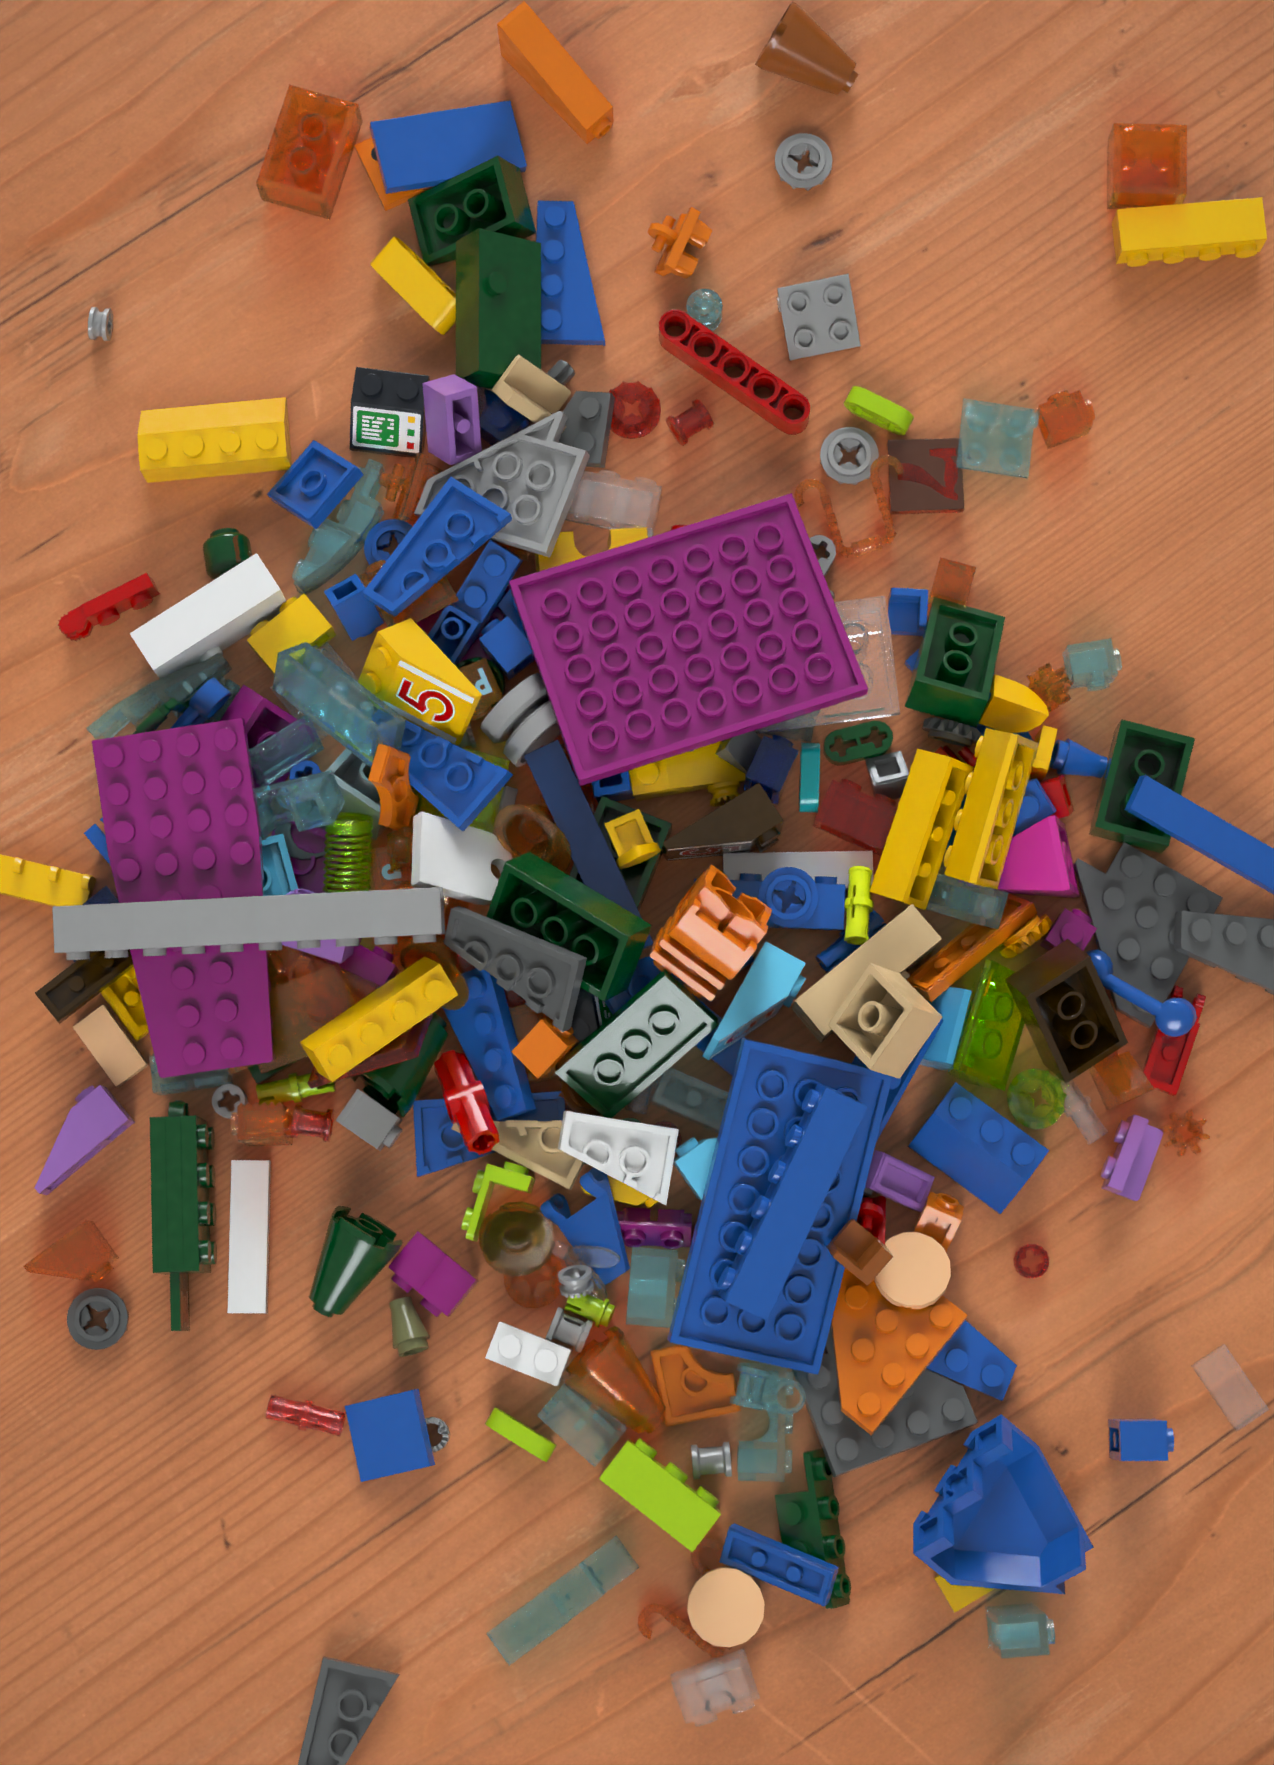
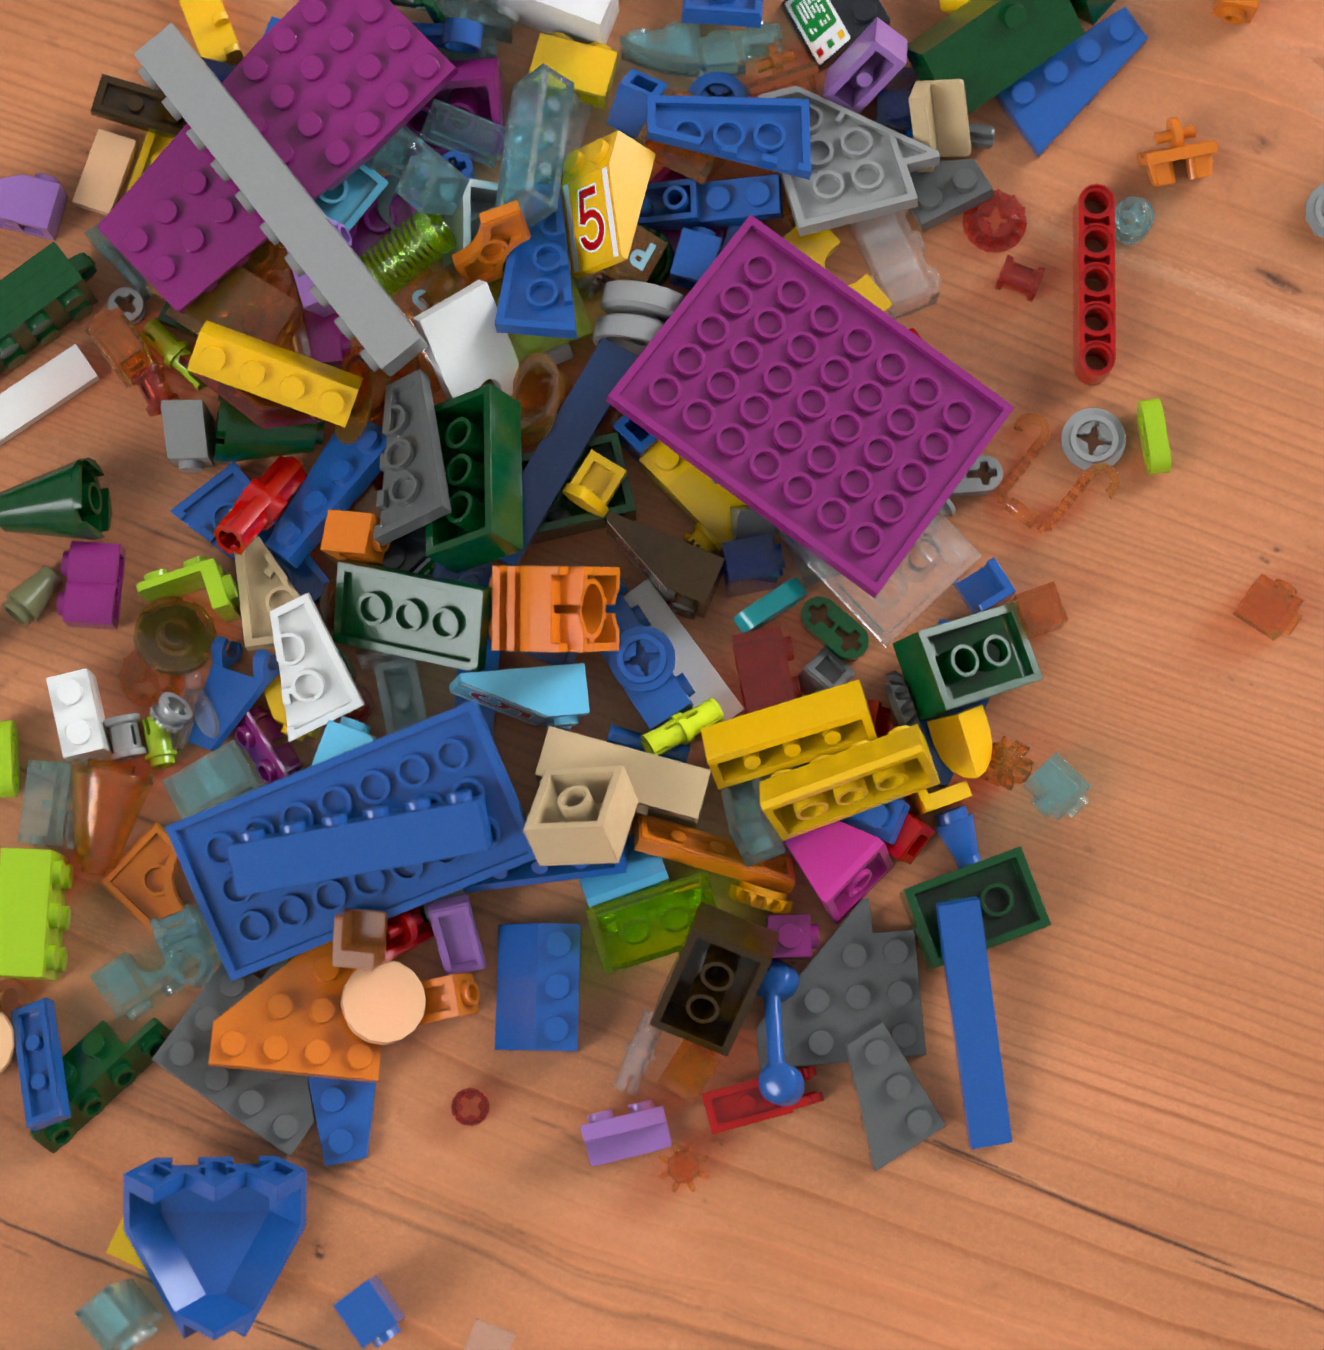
camera: 50 degrees right, 0 degrees up
(711, 1460) = (94, 941): light grey bush -> none
(818, 316) = (1201, 324): light grey hinge -> none
(929, 478) = (1126, 525): reddish brown tile -> none
(996, 438) = (1205, 558): clear light blue hinge -> none
(1023, 1106) = (607, 1002): clear neon green gear -> none

